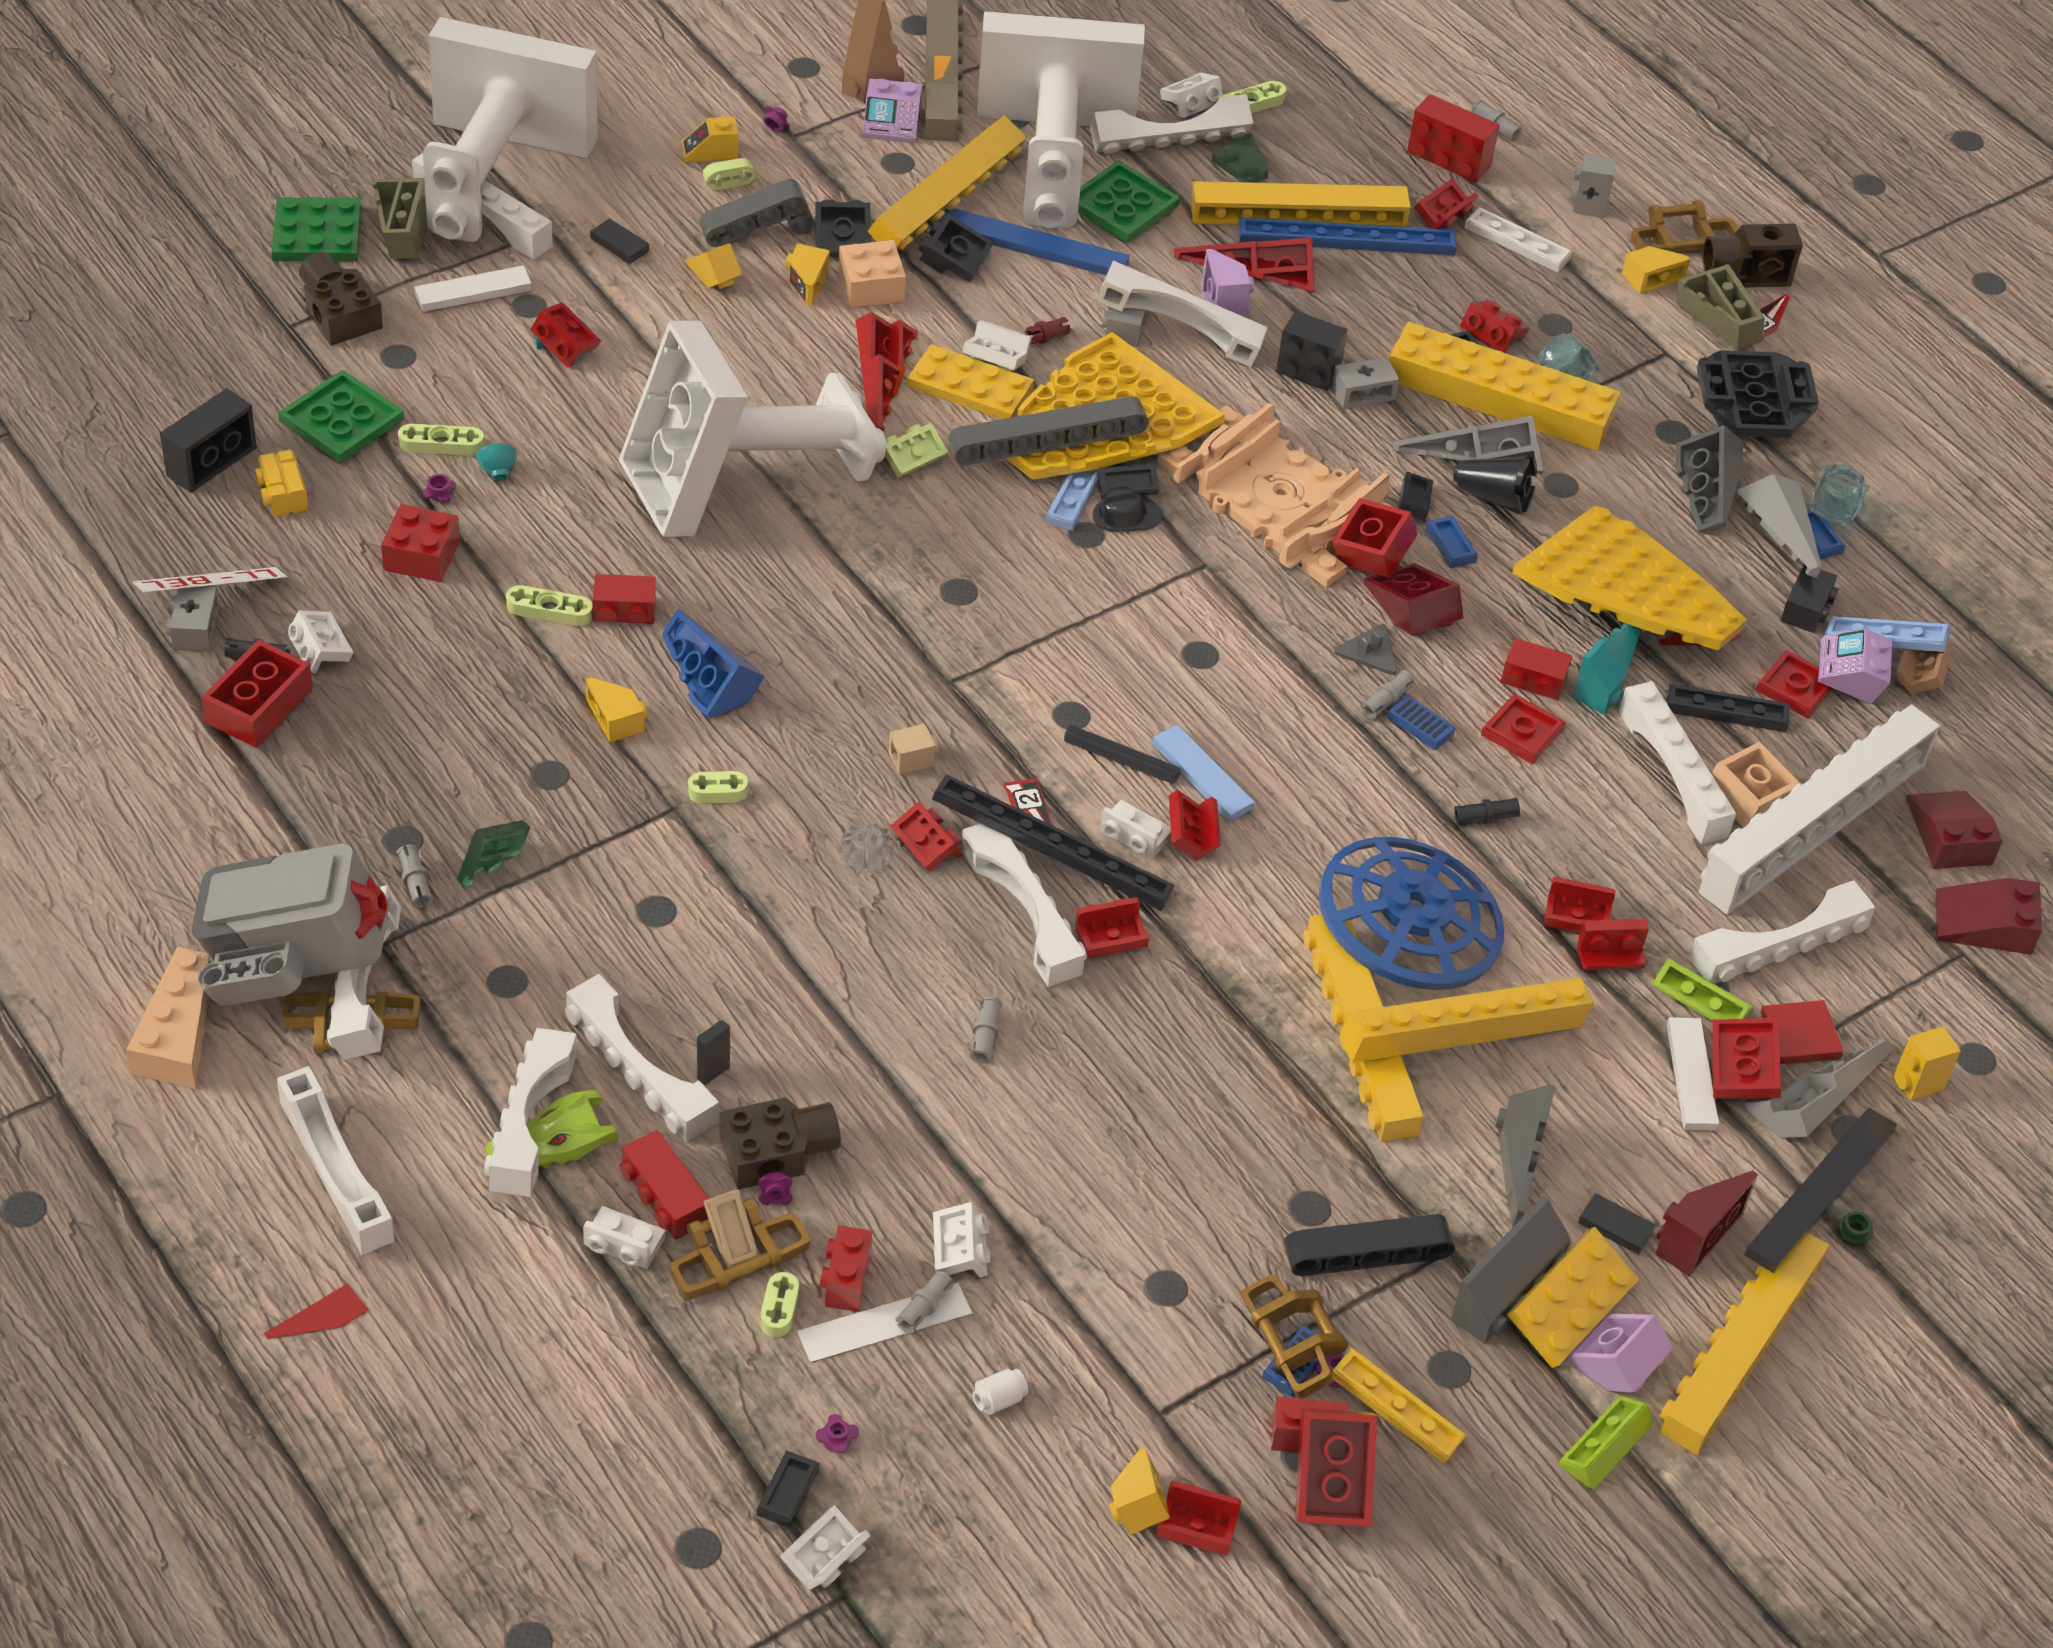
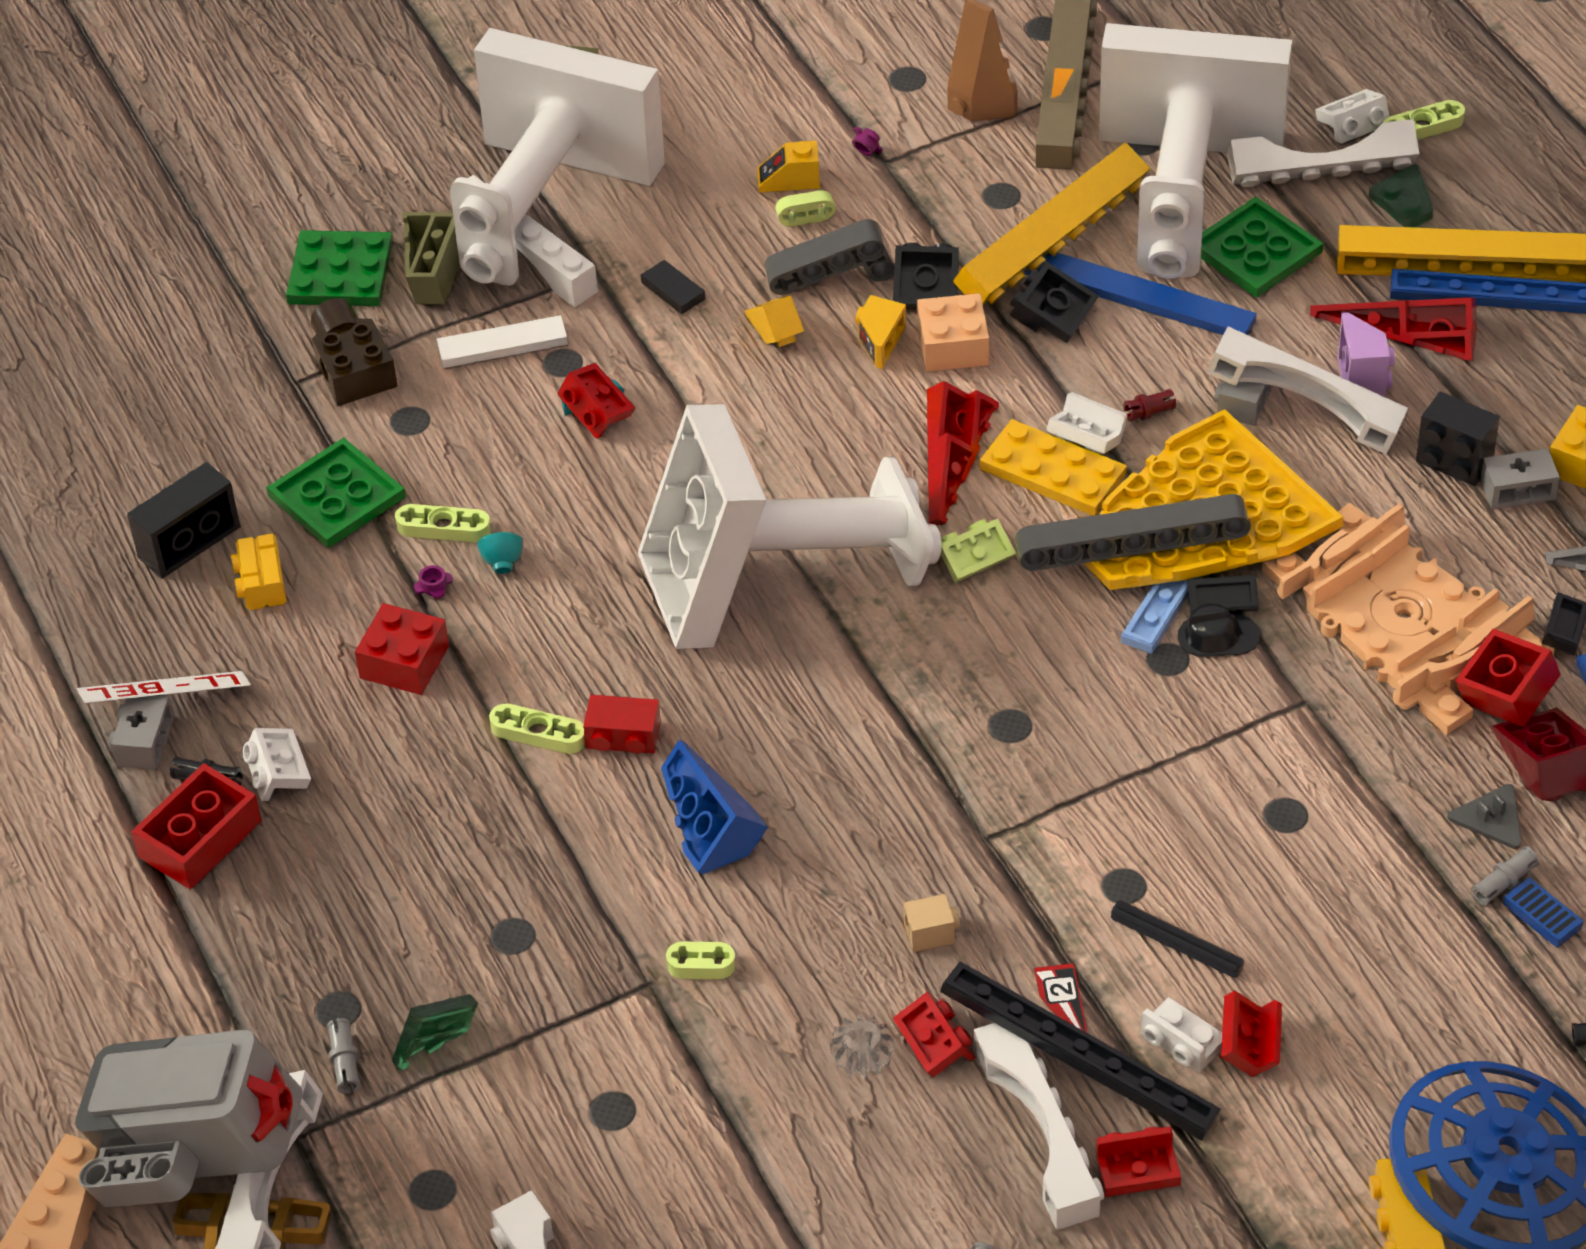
camera: 15 degrees right, 0 degrees up
(615, 709) = (596, 860): yellow slope -> none
(892, 110) = (1000, 133): lavender slope -> none
(1203, 772) = (1272, 966): light blue tile -> none

